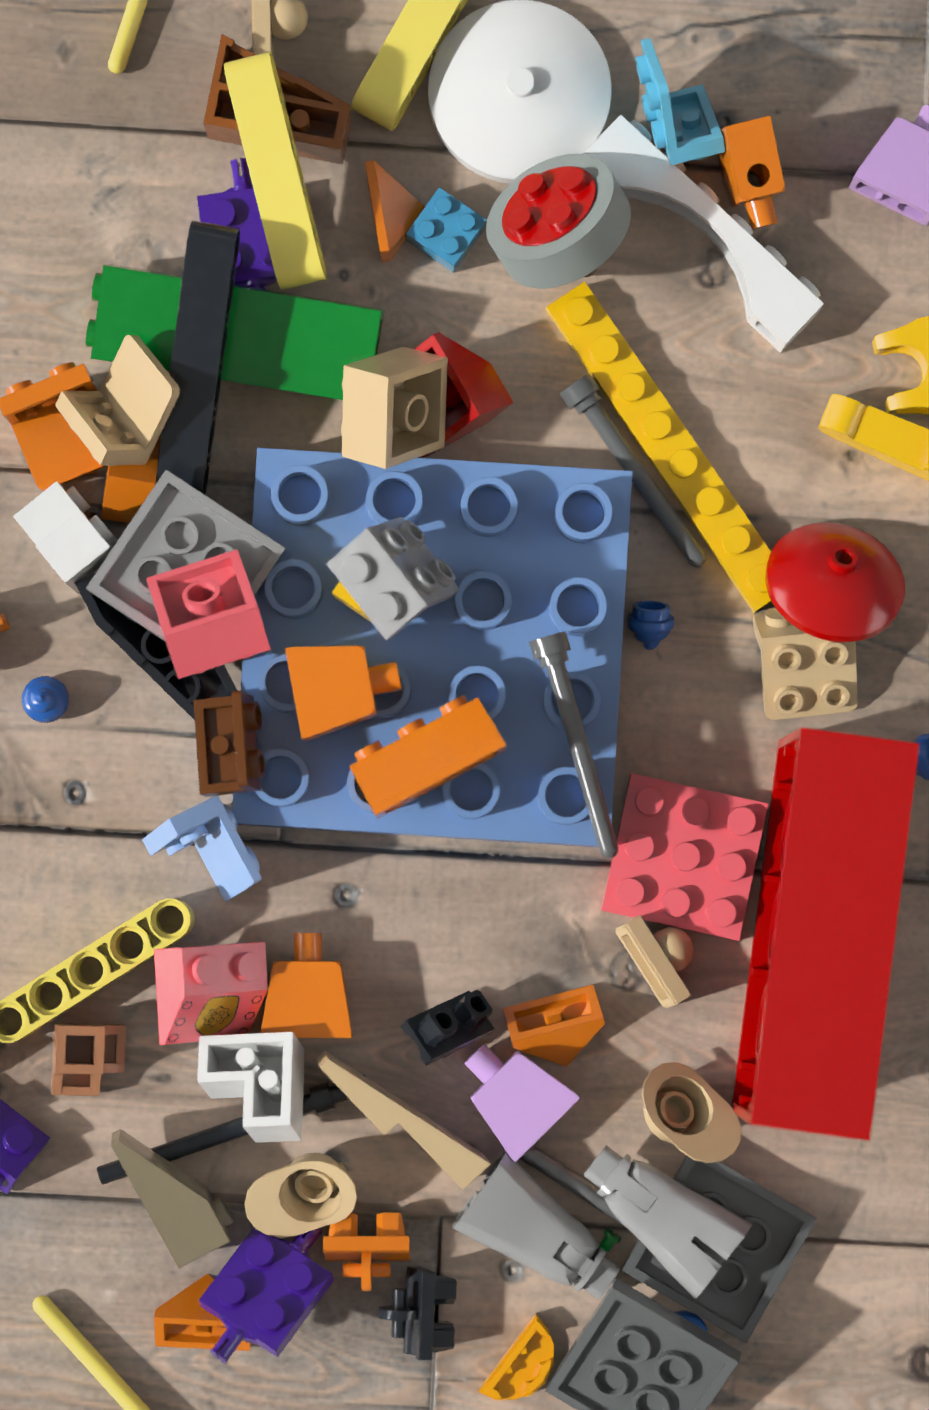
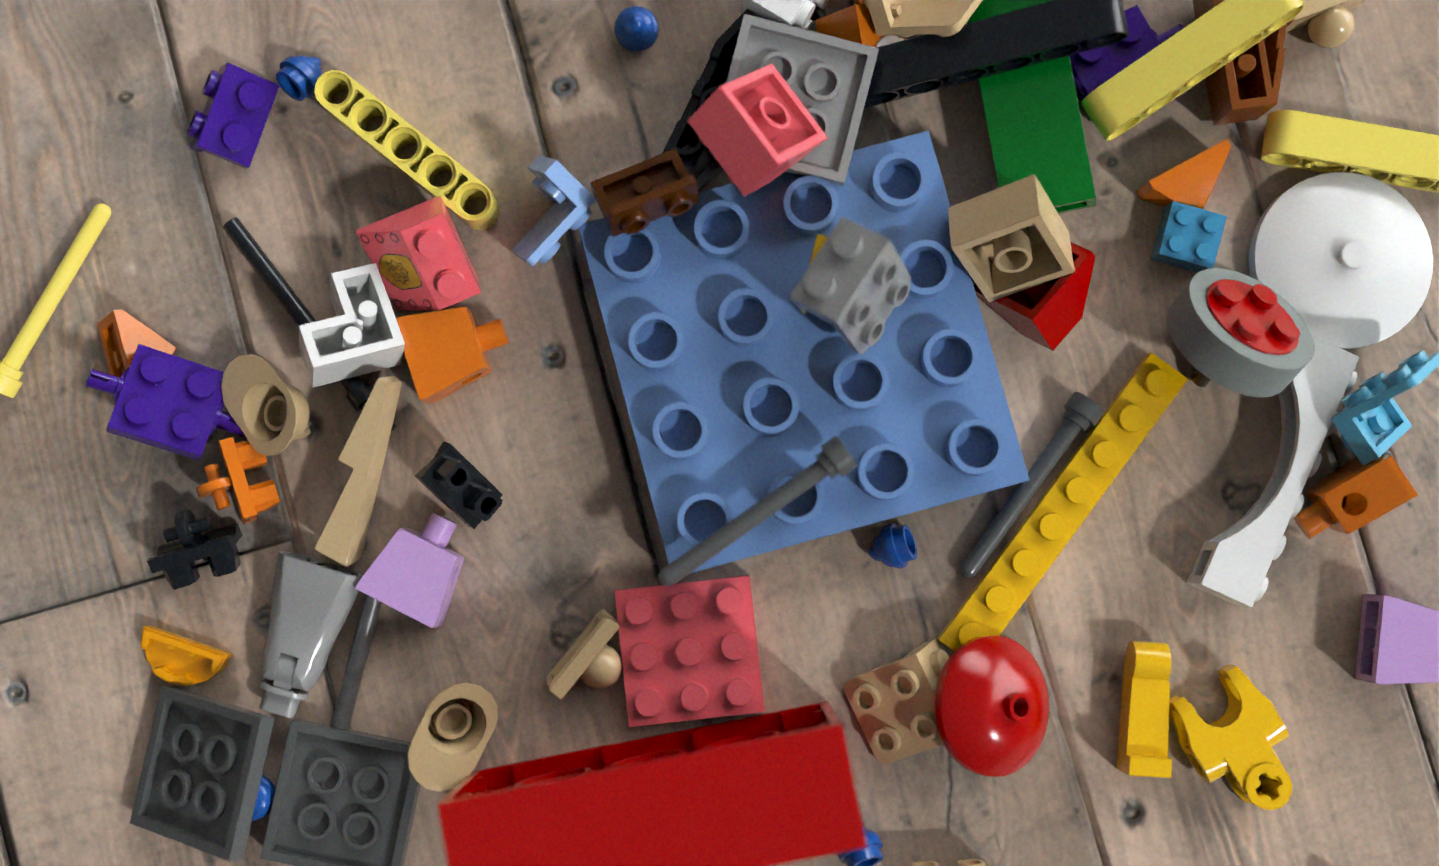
camera: 75 degrees right, 0 degrees up
(83, 1055) = (330, 168): nougat brick -> none
(175, 1201) = (224, 291): dark tan slope -> none
(336, 687) = (730, 270): orange torso -> none
(426, 755) = (693, 373): orange slope -> none
(556, 1024) = (496, 583): orange slope -> none
(609, 1240) = (319, 699): green piece -> none
(674, 1222) = (347, 752): light grey piece -> none

